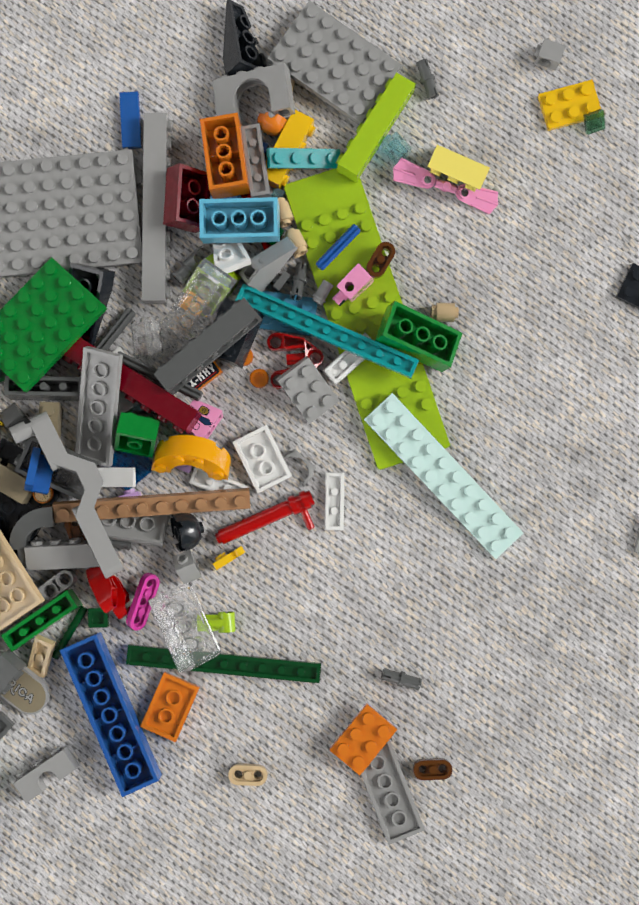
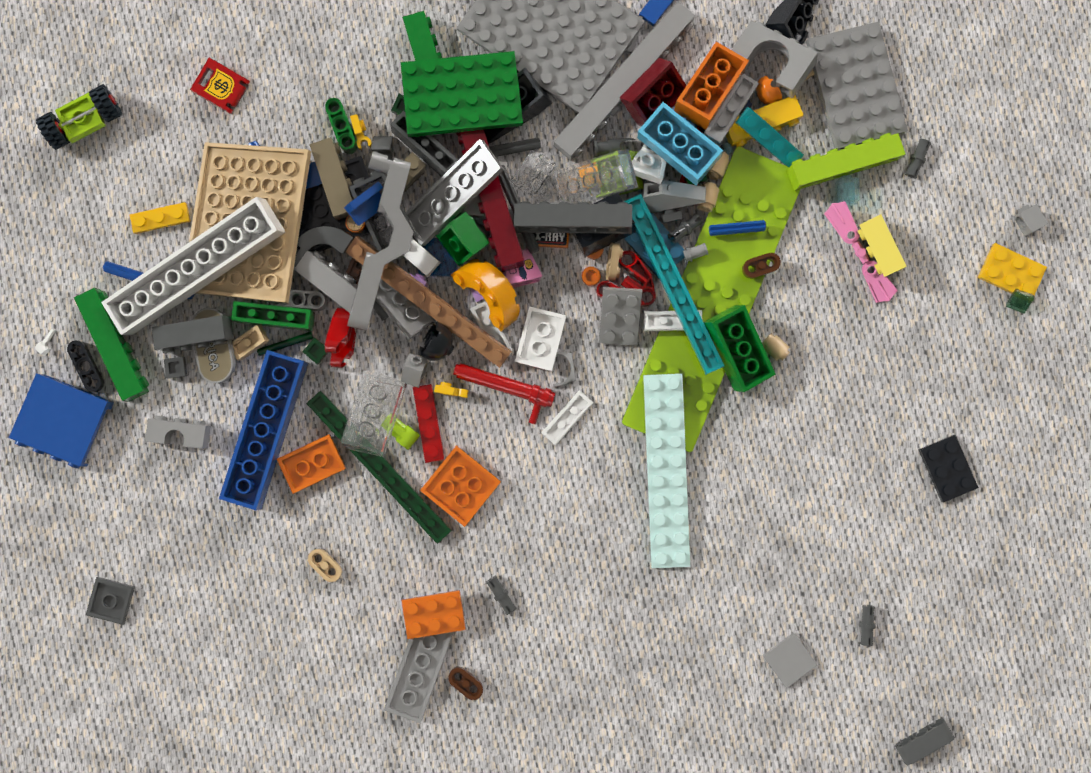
camera: 45 degrees right, 0 degrees up
(139, 608) = (353, 373): dark pink plate -> none
(233, 597) = (428, 423): none -> red plate
(270, 358) = (612, 269): none -> tan plate
(298, 623) = (460, 486): none -> orange plate
(359, 278) = (731, 262): bright pink torso -> none

